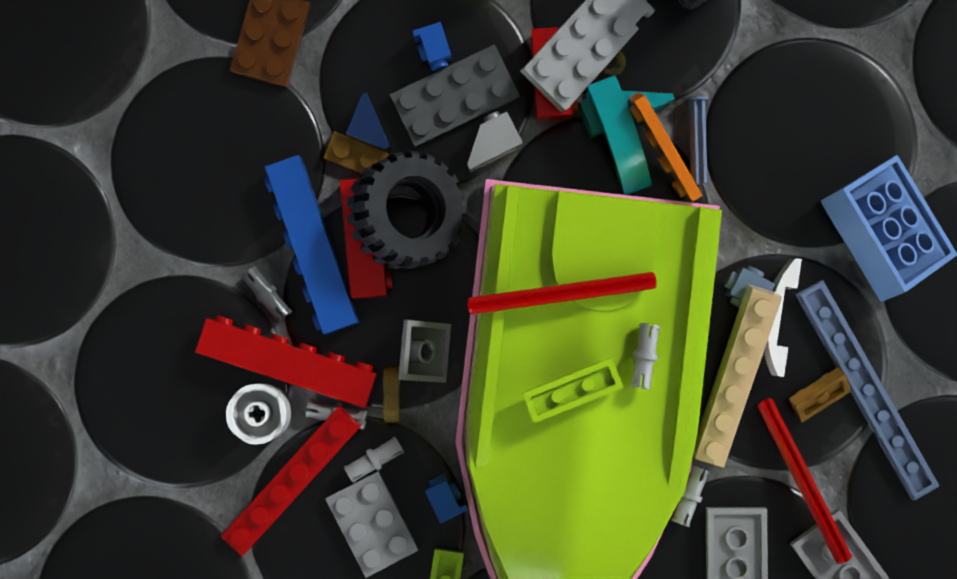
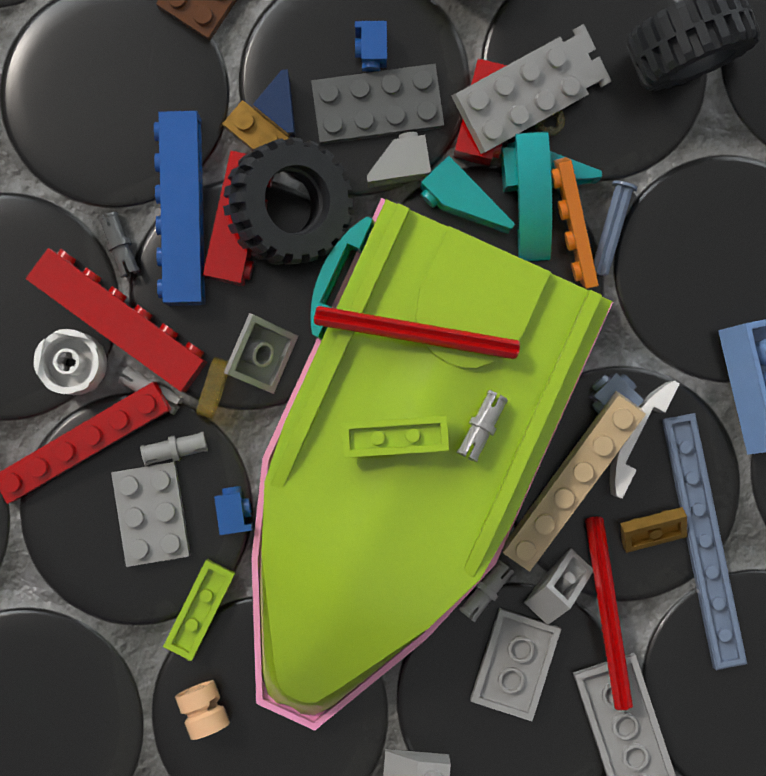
camera: 15 degrees right, 0 degrees up
(475, 224) = (354, 240): none -> teal slope
(553, 154) = (459, 195): none -> teal slope
(753, 472) = (559, 587): none -> light grey slope

